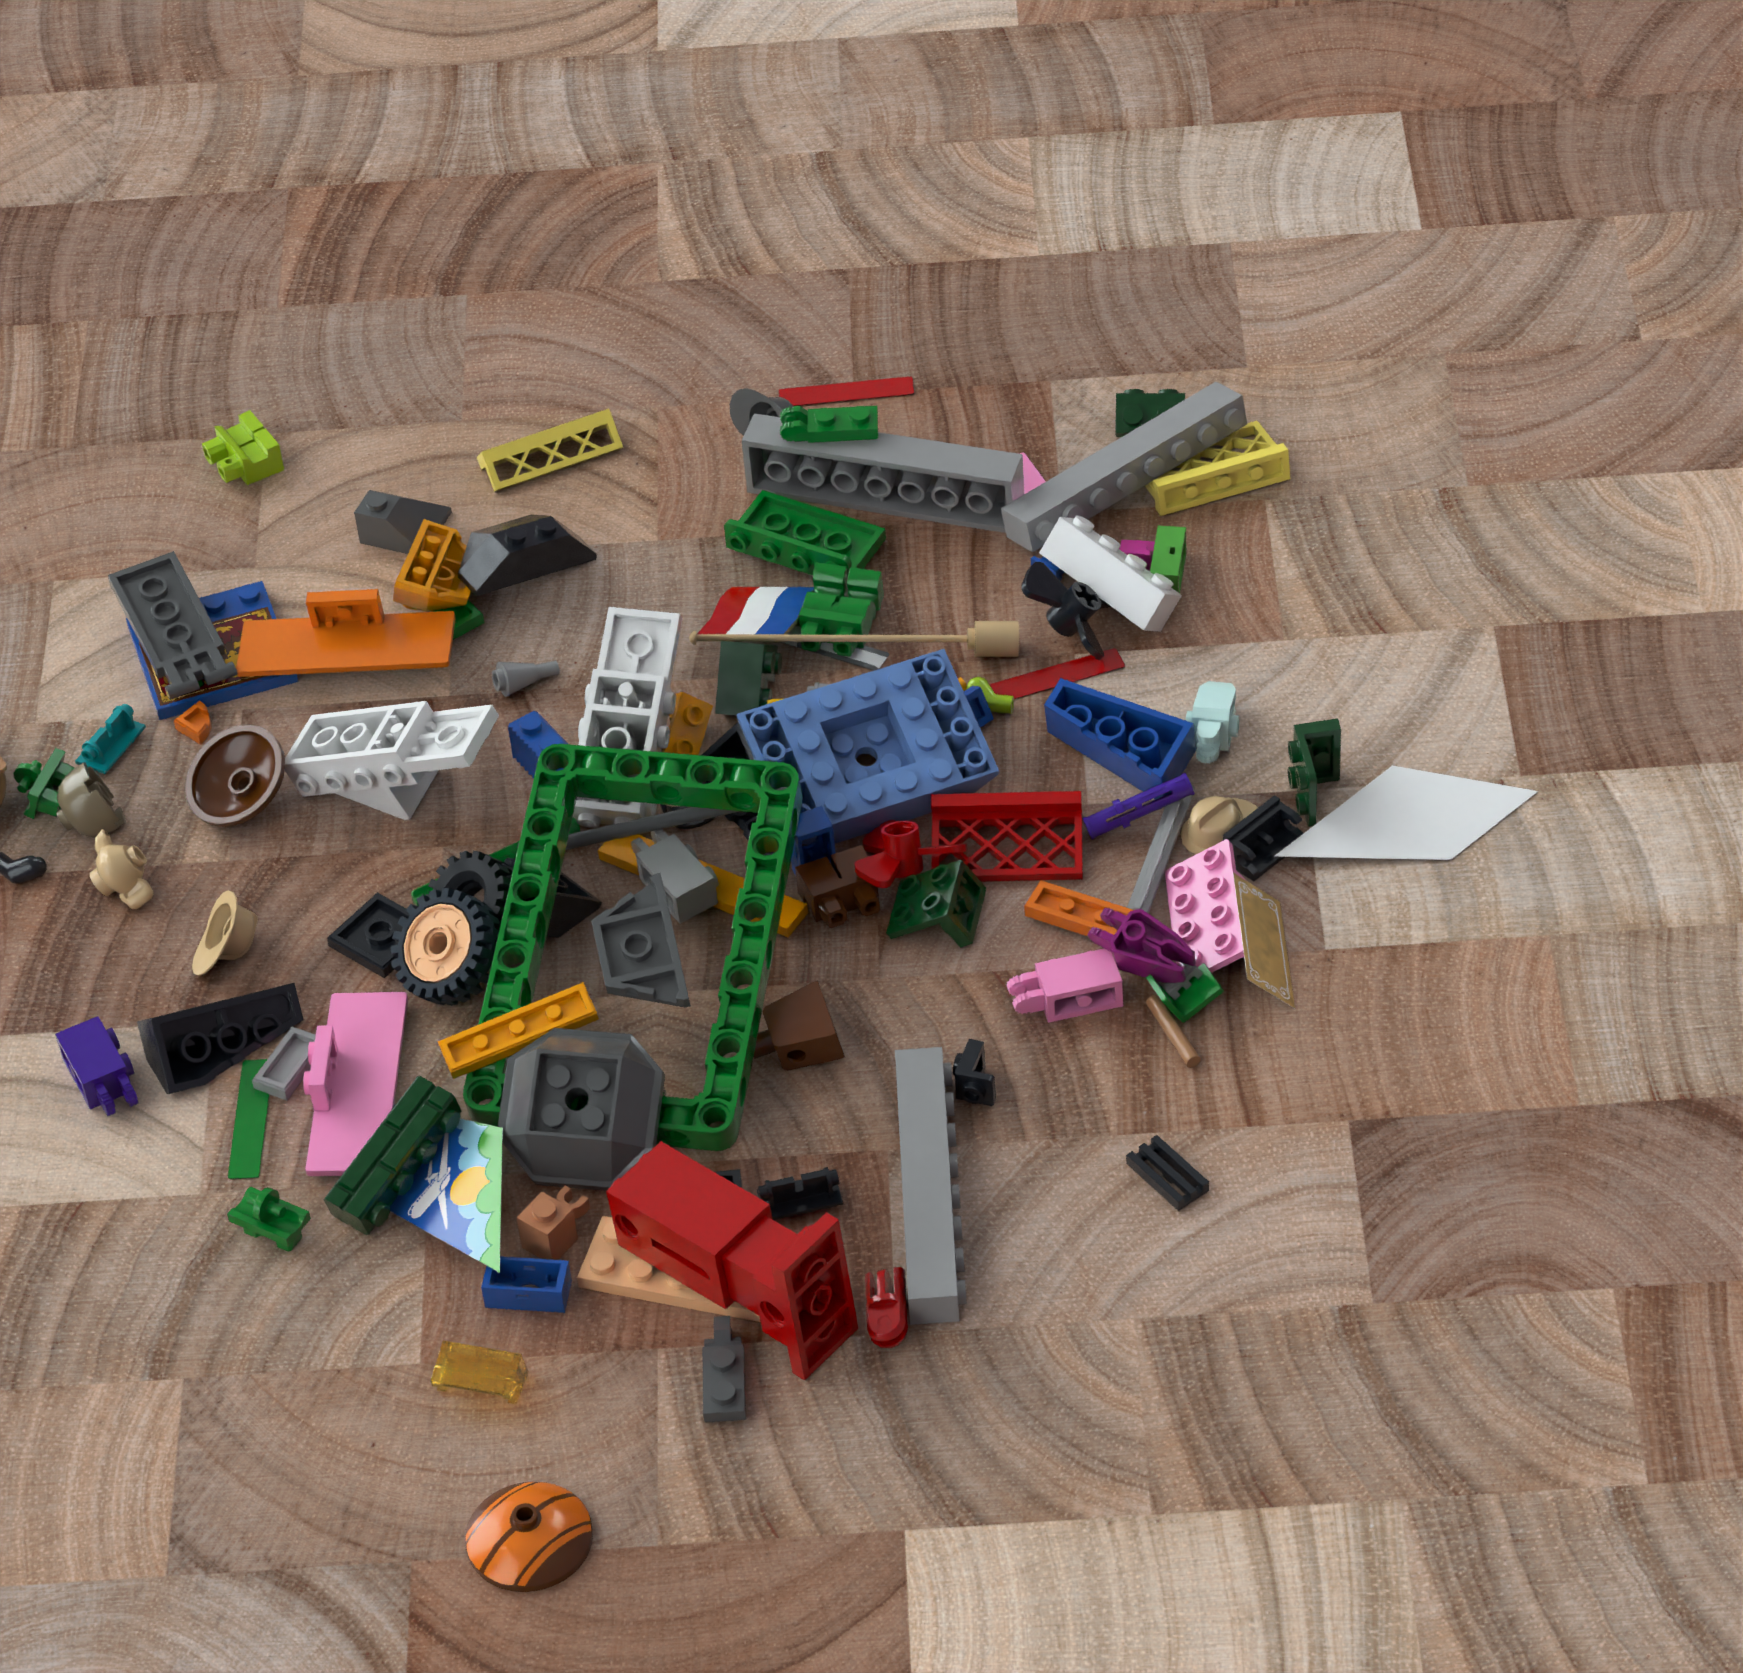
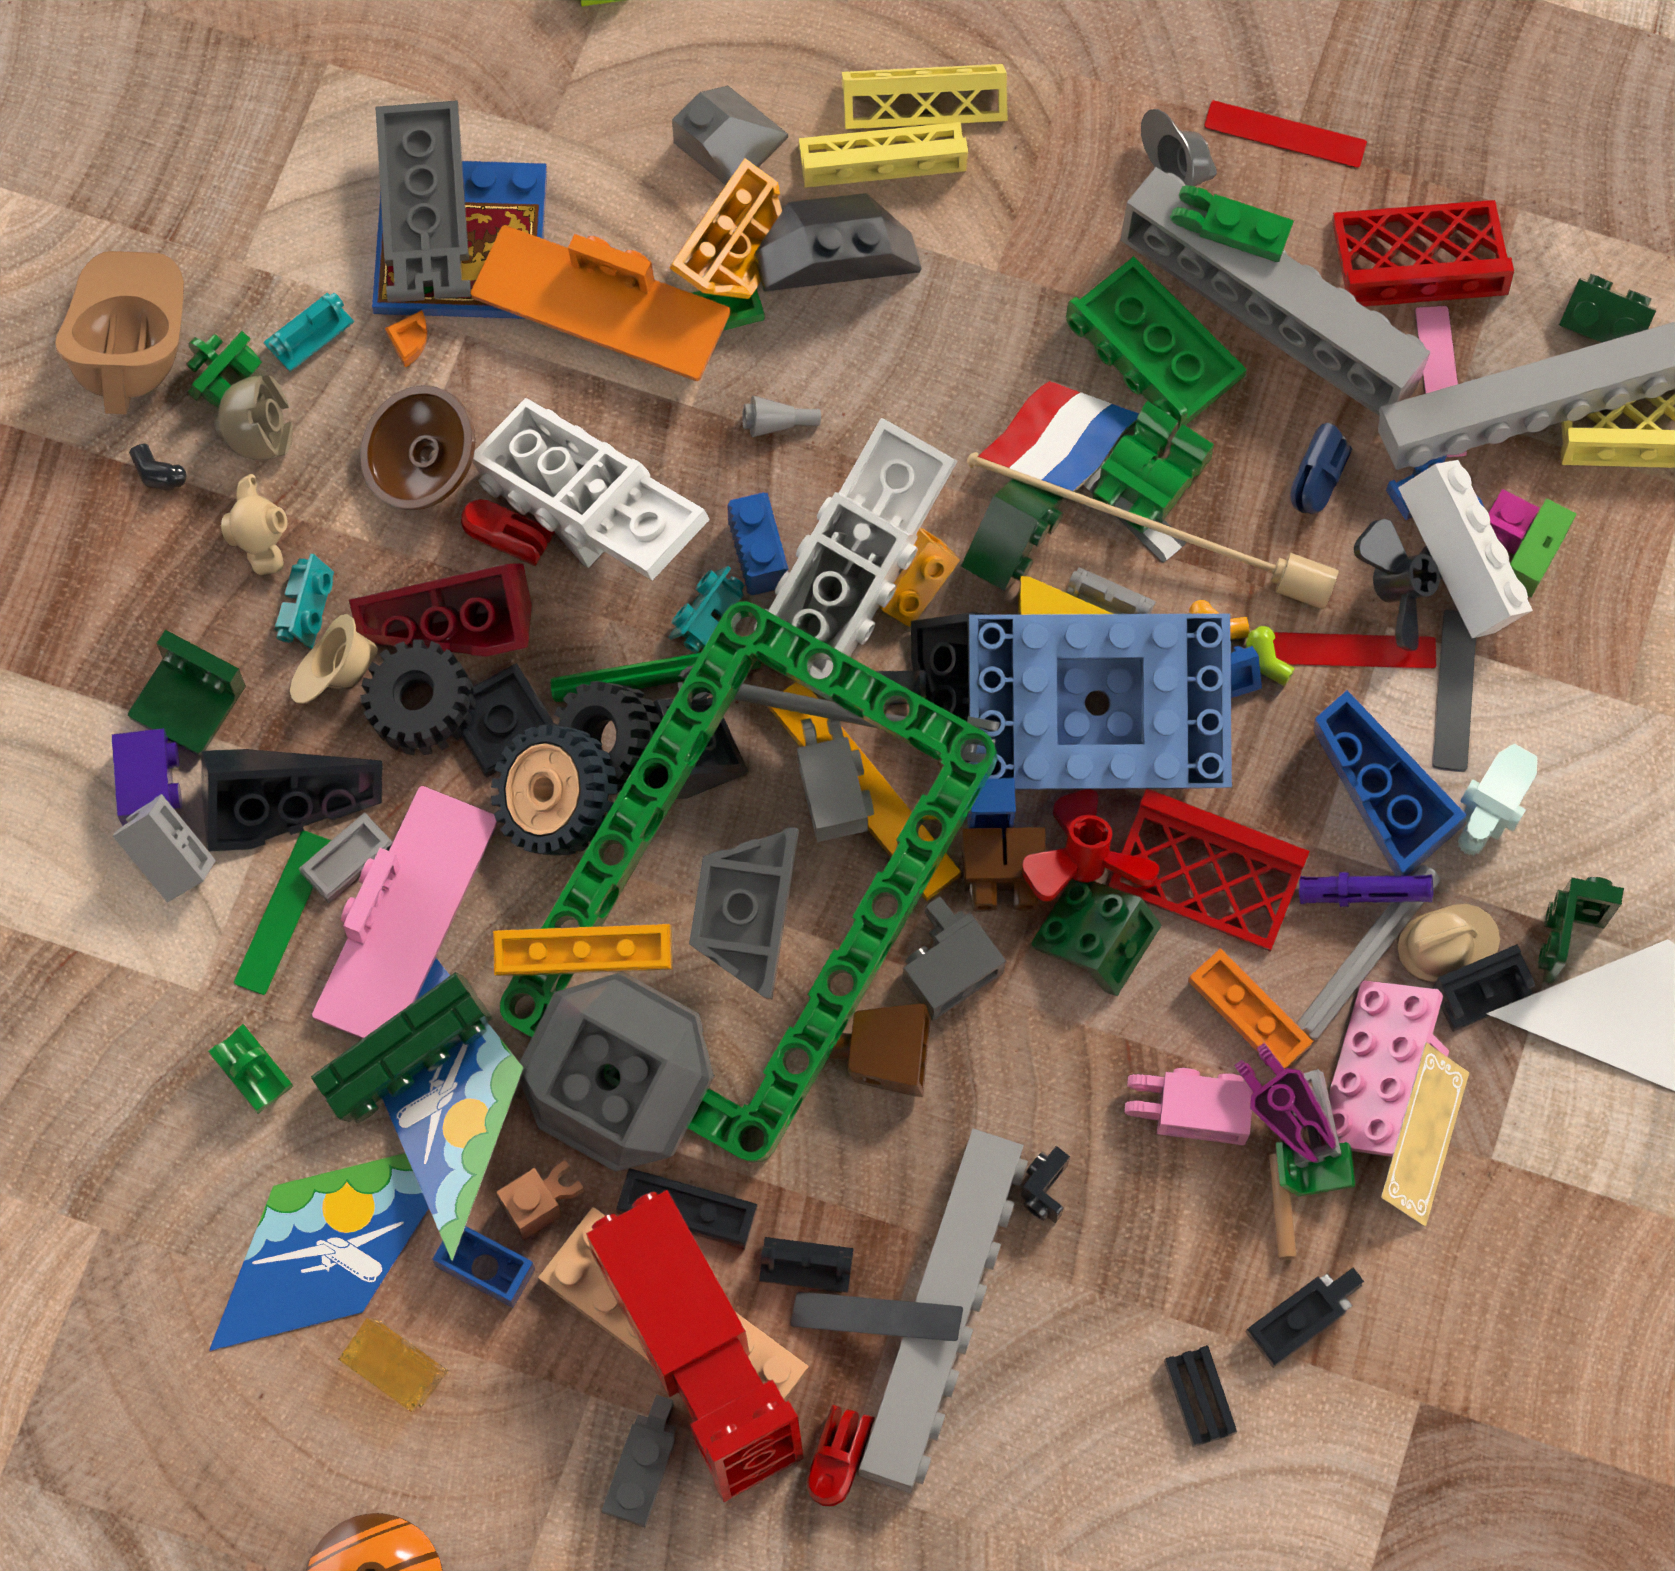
camera: 15 degrees right, 25 degrees up
(110, 986) = (187, 694): none -> dark green bracket
(132, 1093) = (164, 848): none -> light grey hinge
(181, 909) = (309, 583): none -> teal hinge
(312, 870) = (465, 613): none -> dark red wedge
(314, 951) = (435, 720): none -> black tyre
(331, 810) = (505, 530): none -> red arm
(384, 1325) = (322, 1249): none -> sticker
(512, 817) = (716, 595): none -> teal hinge
(536, 494) = (884, 160): none -> light yellow fence
(831, 955) = (957, 964): none -> dark grey hinge
(885, 1194) = (877, 1316): none -> black sticker
(973, 570) = (1320, 469): none -> dark blue arm
(1007, 428) = (1426, 278): none -> red fence
(1146, 670) = (1454, 693): none -> dark grey sticker
(1225, 1090) = (1303, 1316): none -> black hinge

